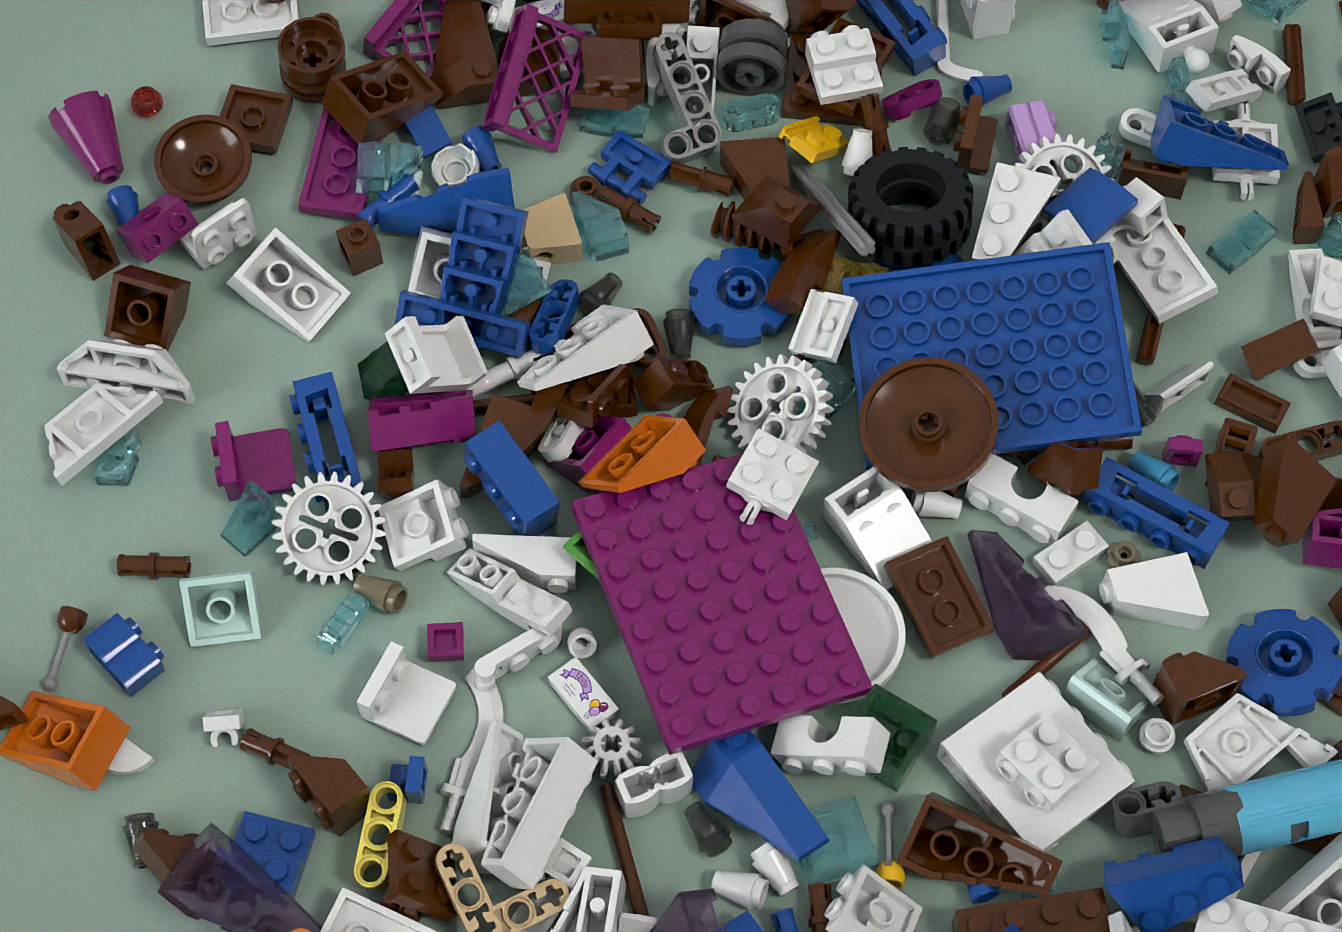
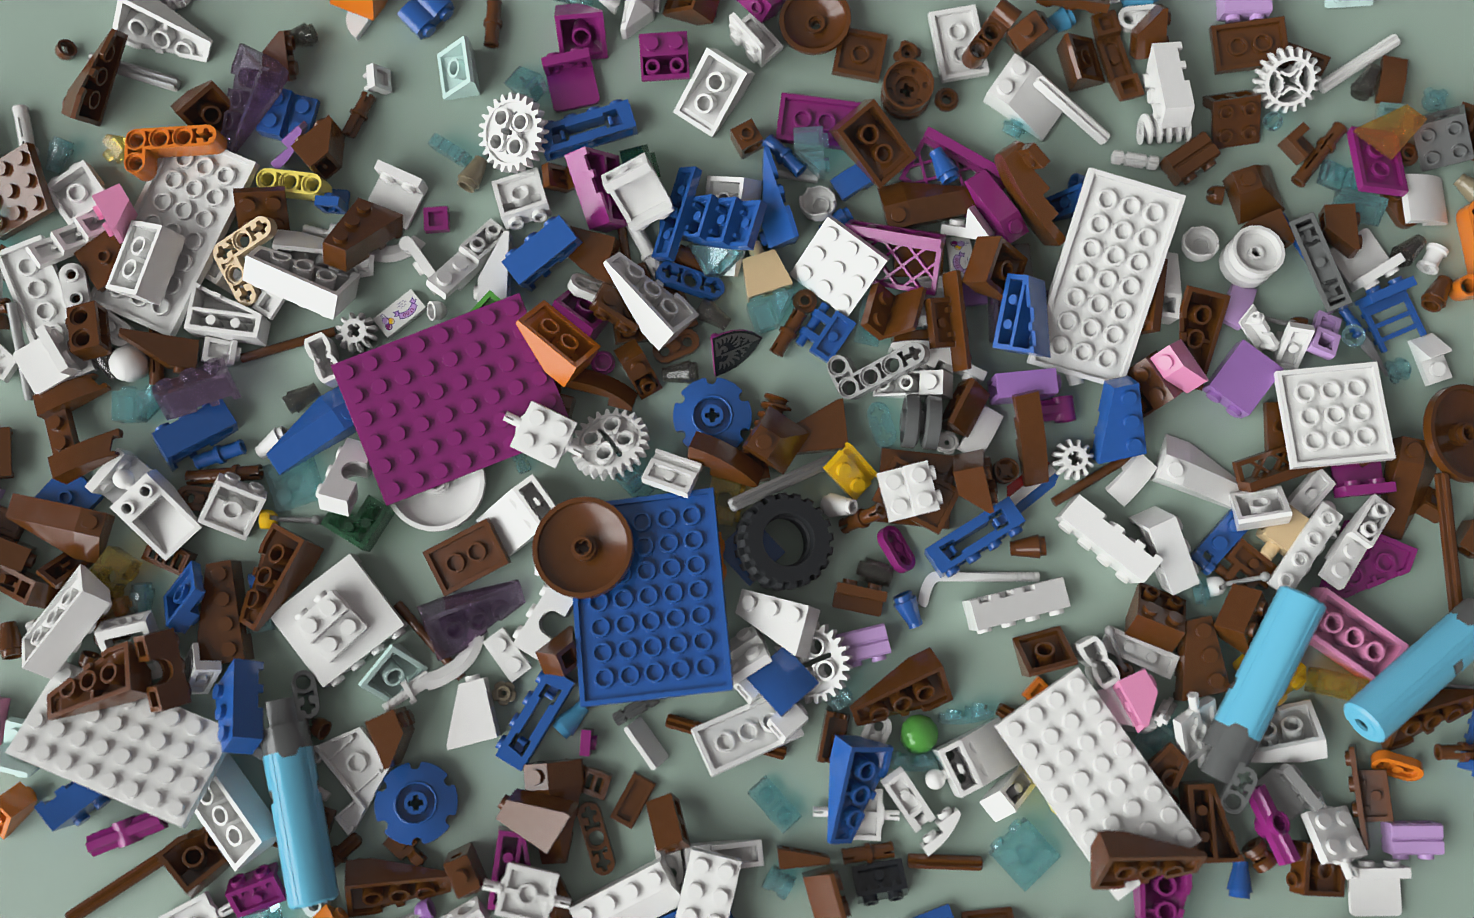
camera: 90 degrees right, 20 degrees up
(179, 448) = (581, 27): none -> magenta slope
(235, 340) = (664, 56): none -> magenta slope
(257, 61) = (907, 47): none -> reddish brown plate
(309, 828) = (288, 140): none -> medium lavender slope
(419, 24) = (944, 167): none -> blue cone
(466, 731) = (360, 233): none -> reddish brown wedge
(544, 139) = (839, 266): none -> white plate
(645, 271) = (732, 348): none -> shield
(702, 179) = (816, 387): reddish brown axle -> none
(741, 887) = (260, 421): white cone -> none
(1084, 81) = (911, 686): none -> reddish brown wedge
(1142, 84) = (919, 734): none -> bright green hair
(1157, 735) = (367, 708): white plate -> none
(1292, 141) = (868, 852): none -> reddish brown pin

